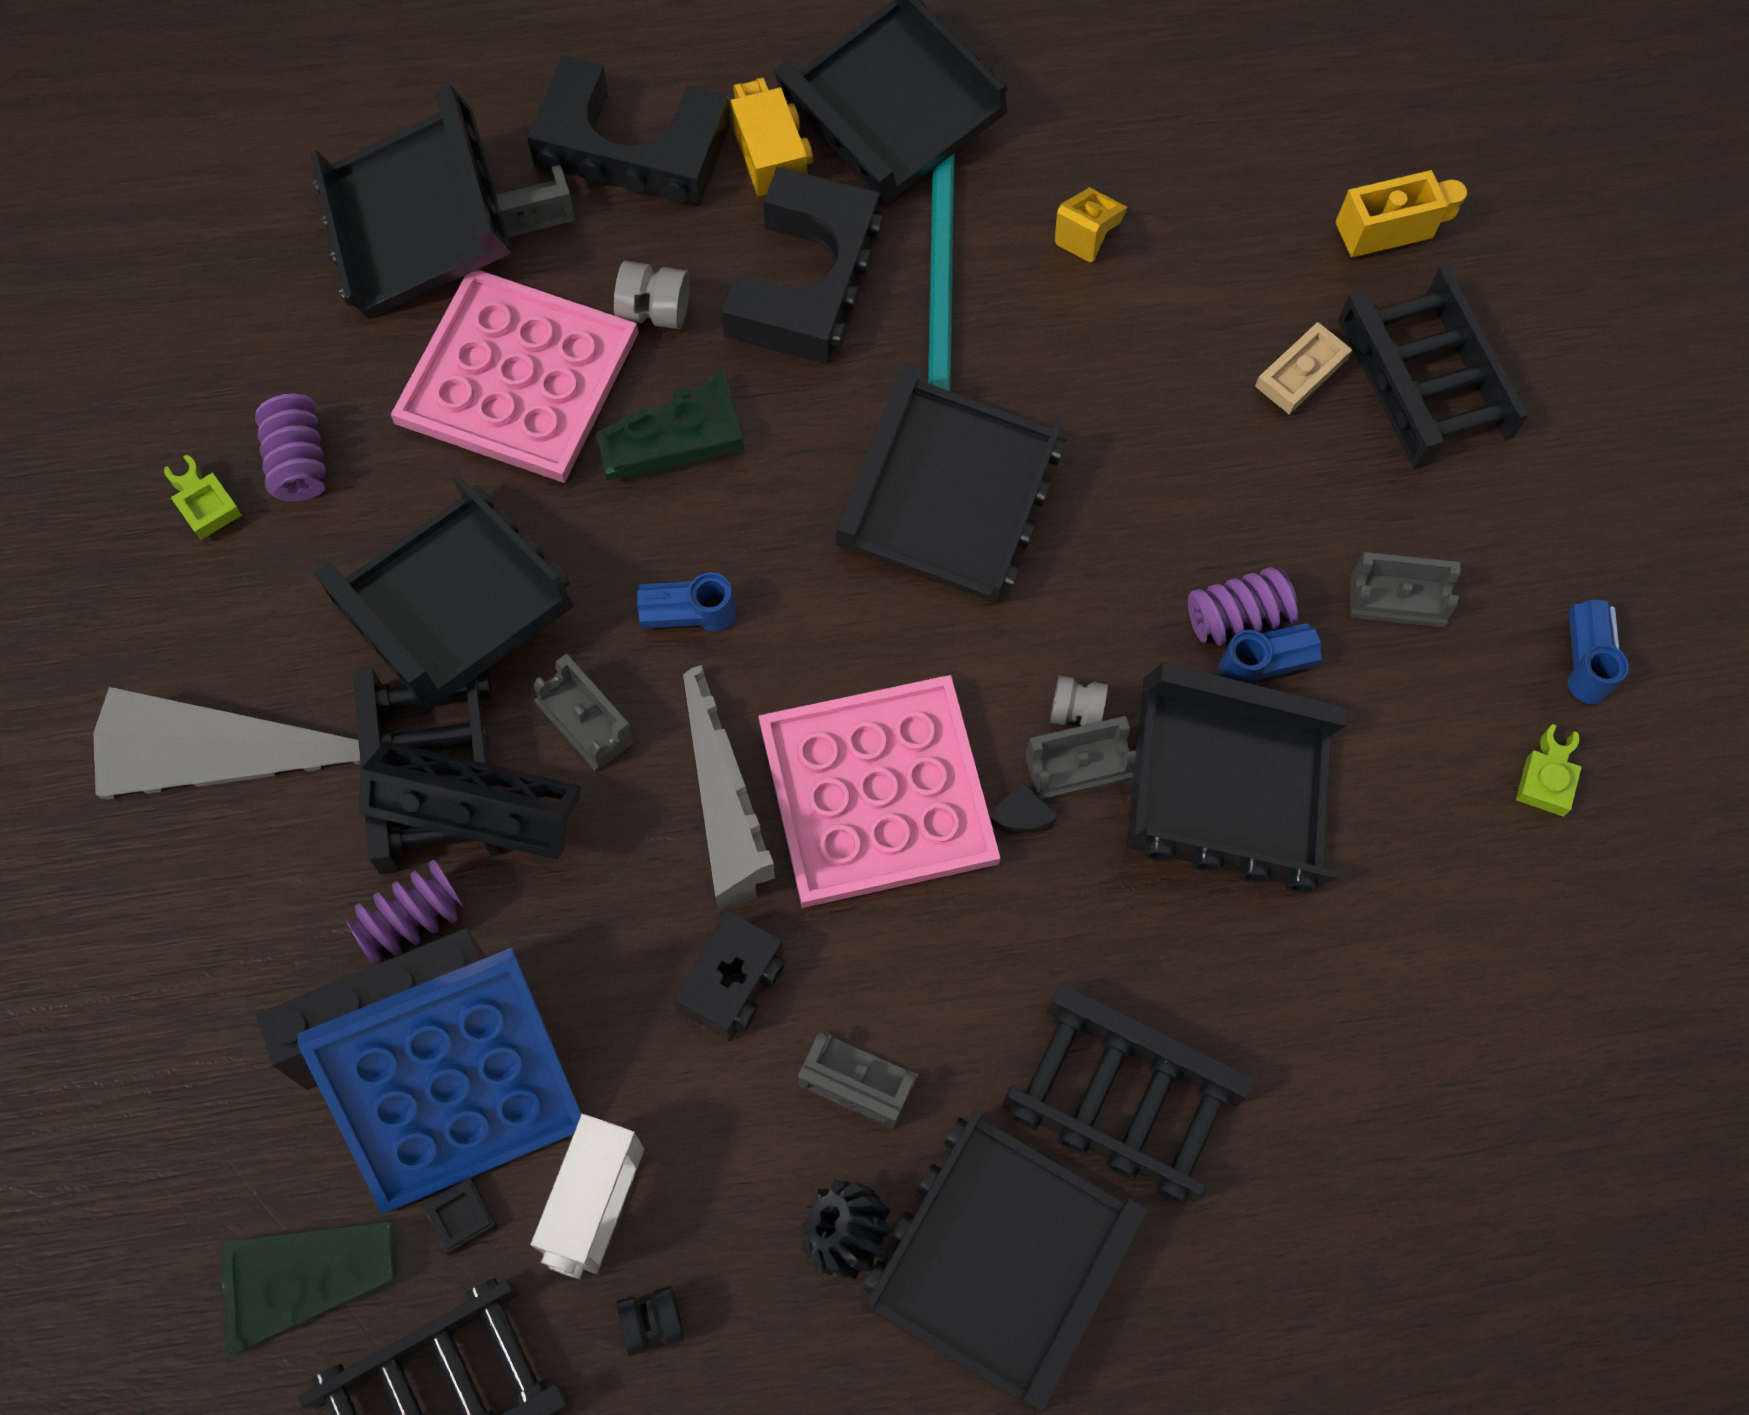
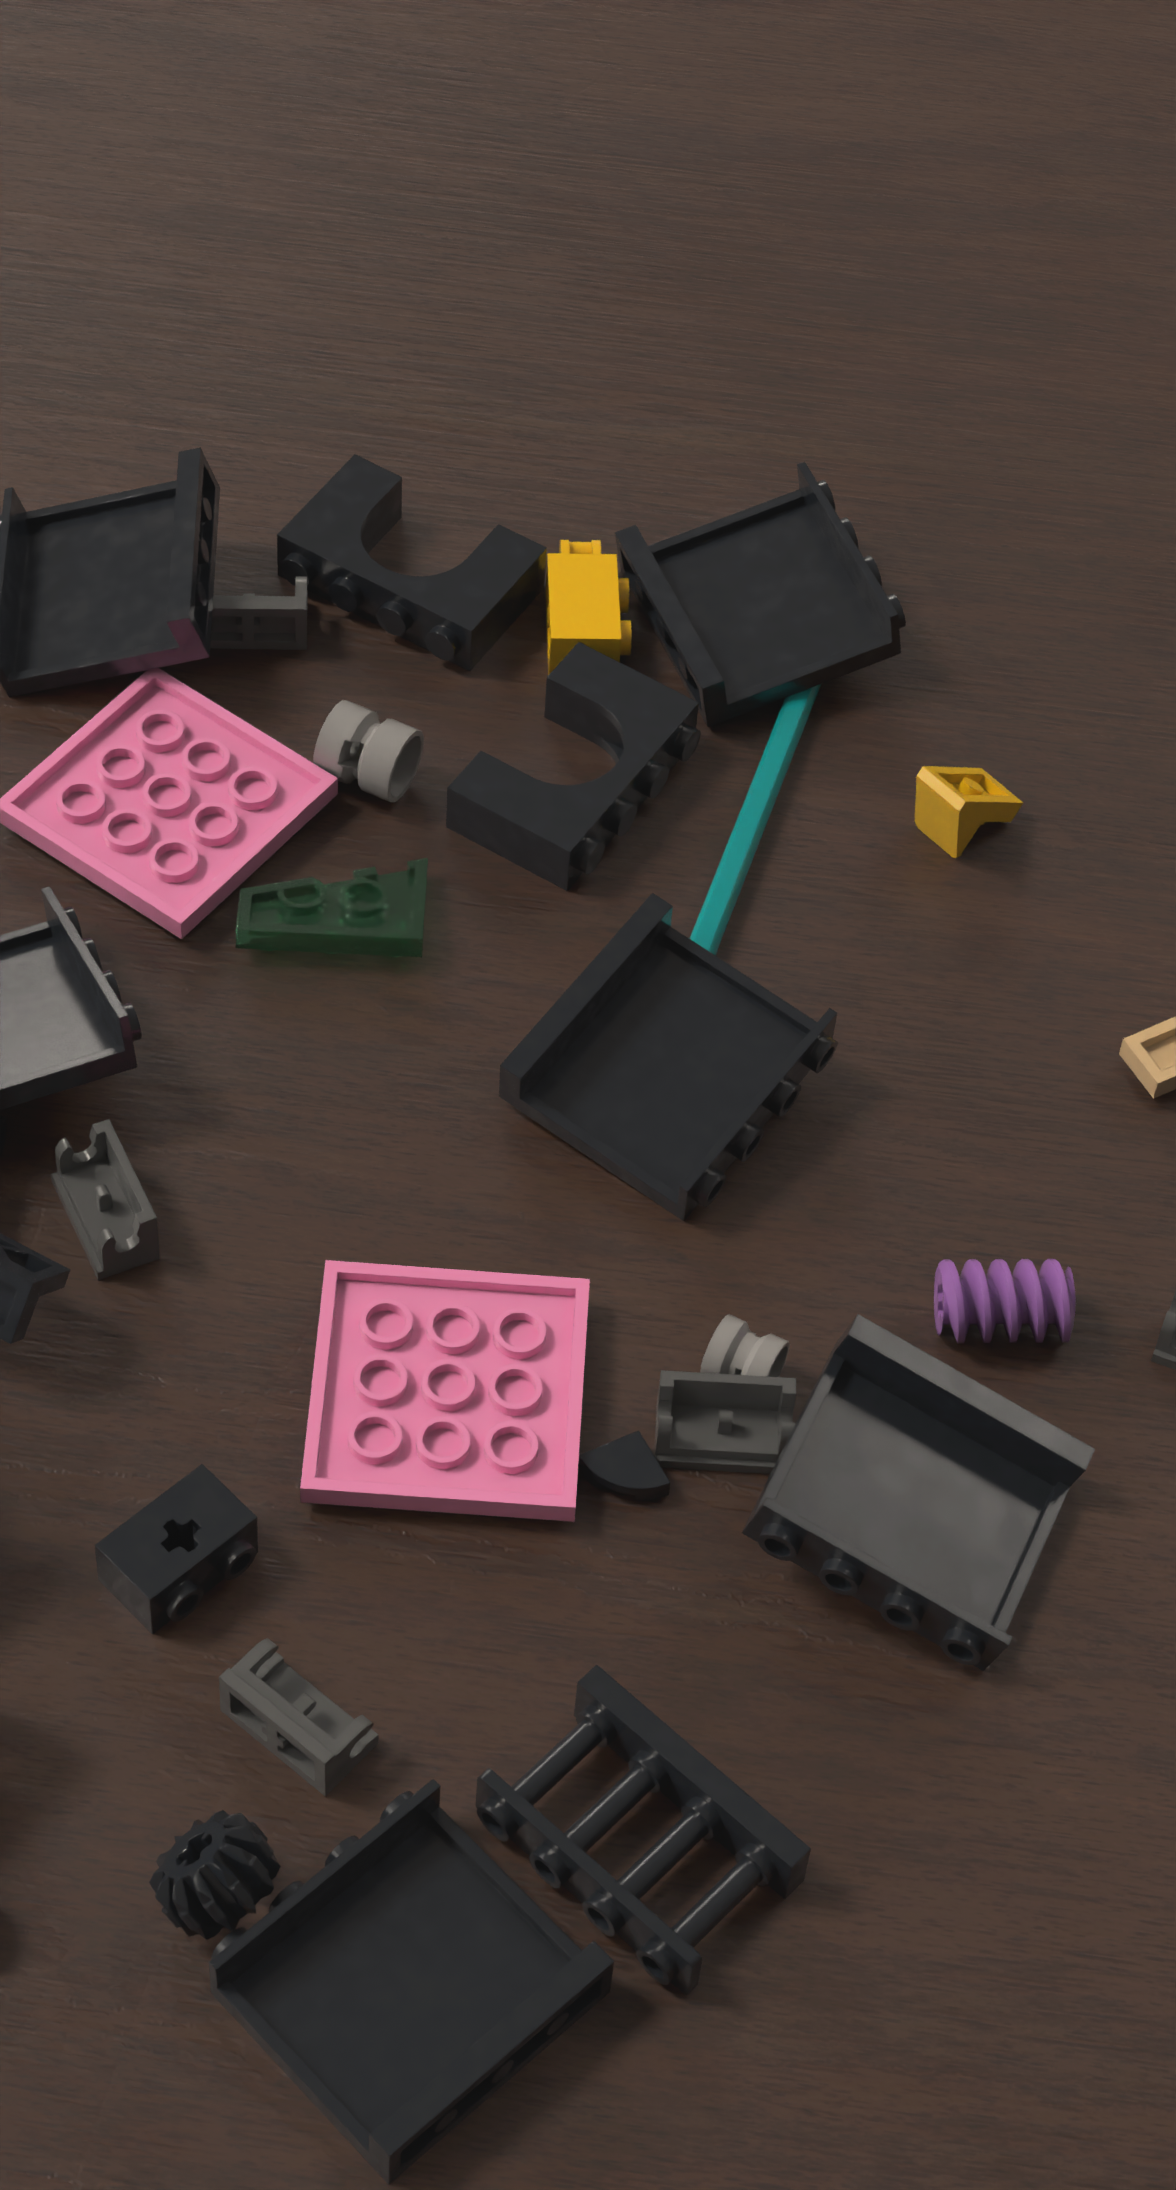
camera: 15 degrees right, 15 degrees down
(682, 603) = (302, 1113): blue piece -> none
(731, 826) = (241, 1376): light grey wedge -> none
(1271, 653) = (1023, 1365): blue piece -> none

